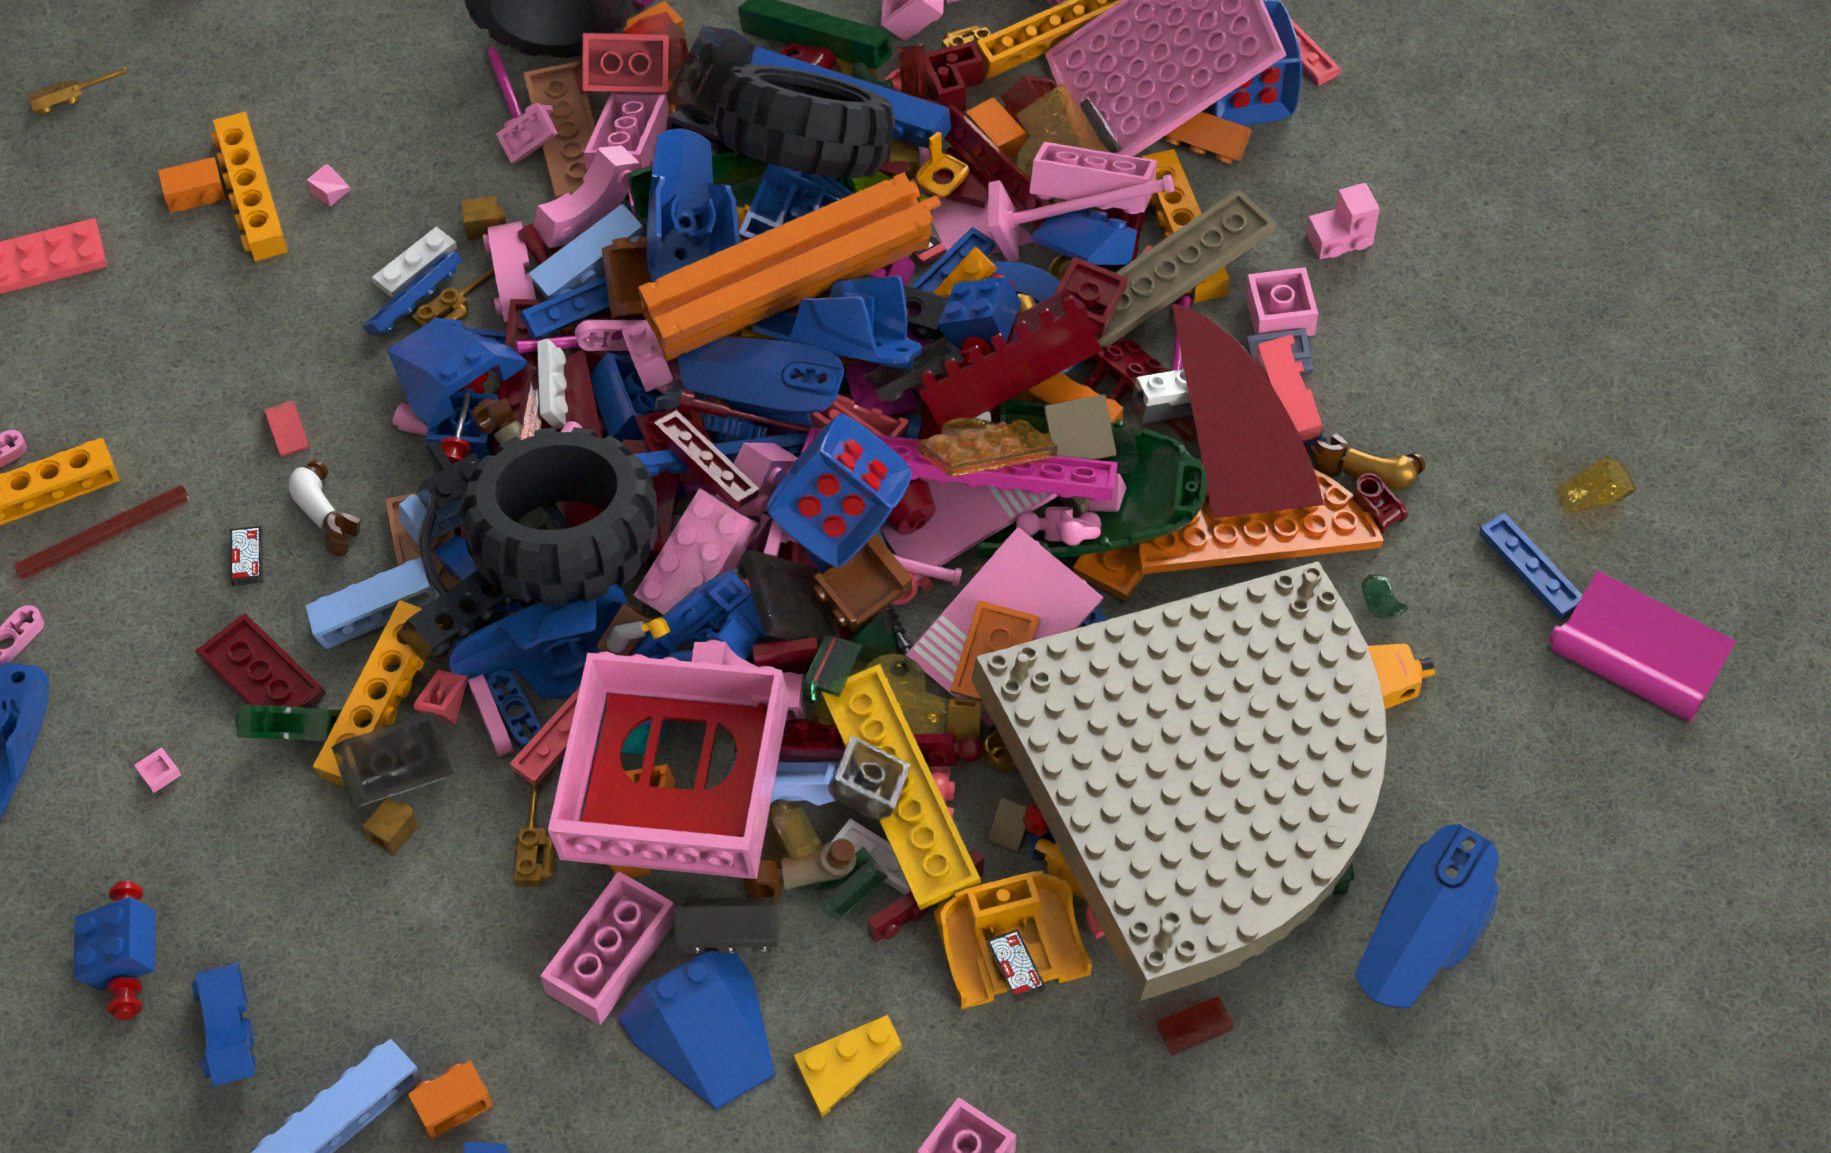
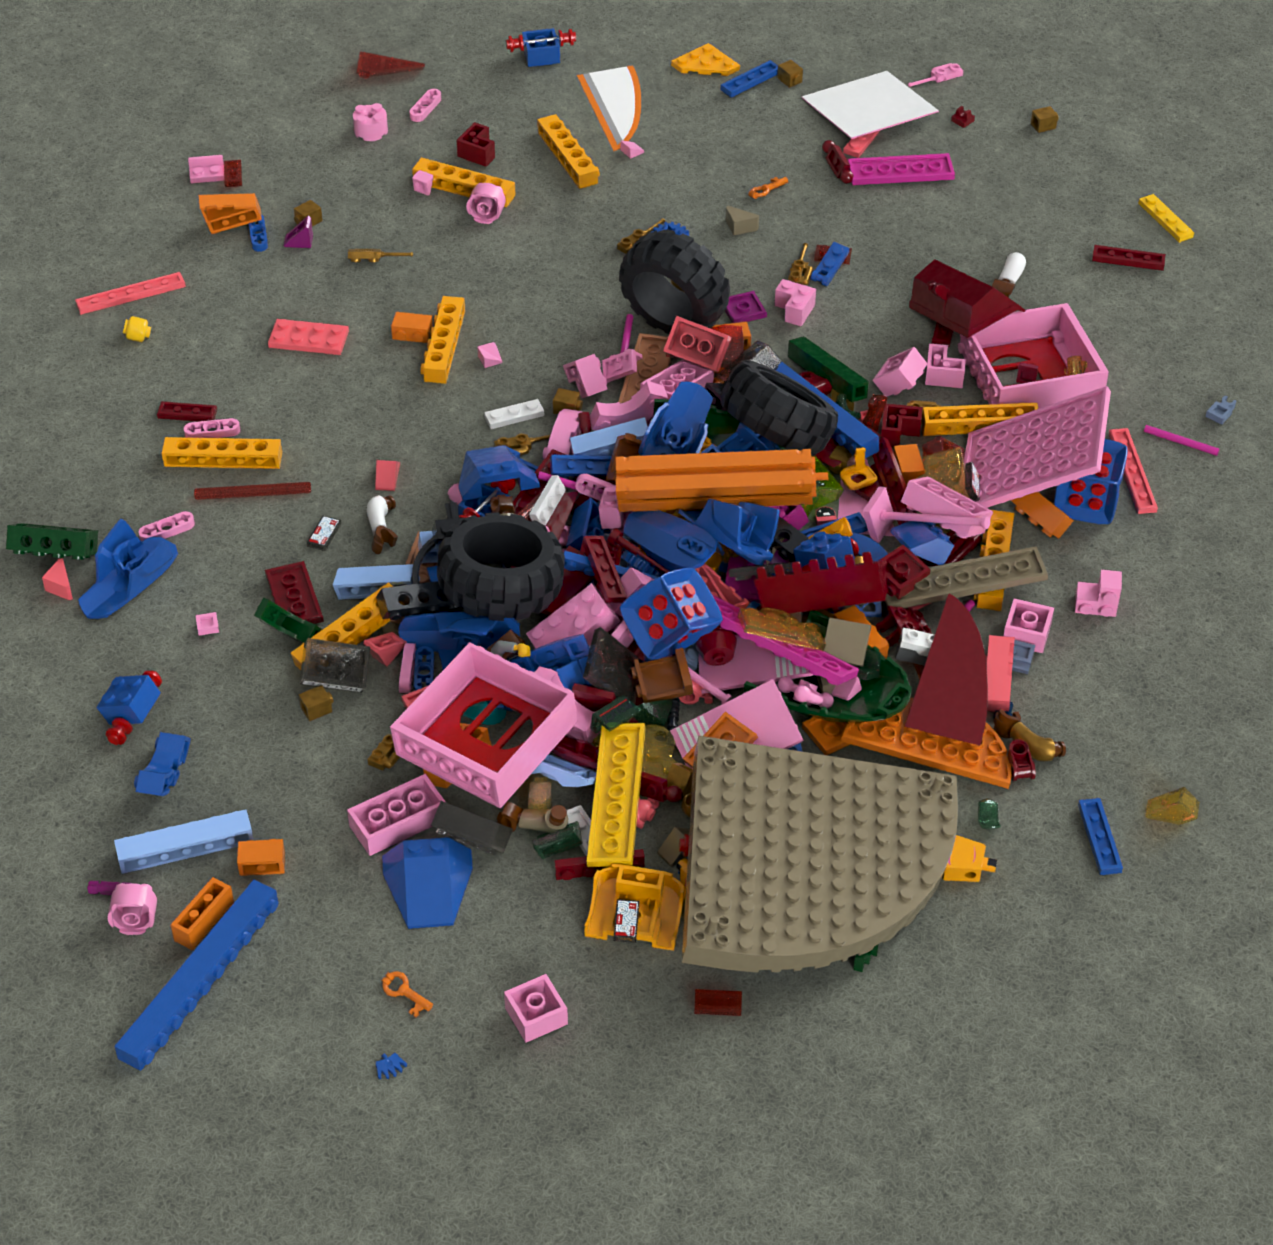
camera: 25 degrees right, 10 degrees down
(420, 287) = (509, 428): blue plate -> none
(488, 163) = (587, 375): none -> bright pink brick
(841, 1063) = (490, 934): yellow wing -> none
(868, 779) = (595, 778): clear smoke slope -> none
(1430, 916) = (901, 1000): blue piece -> none
(1642, 646) = (1143, 909): dark pink door -> none

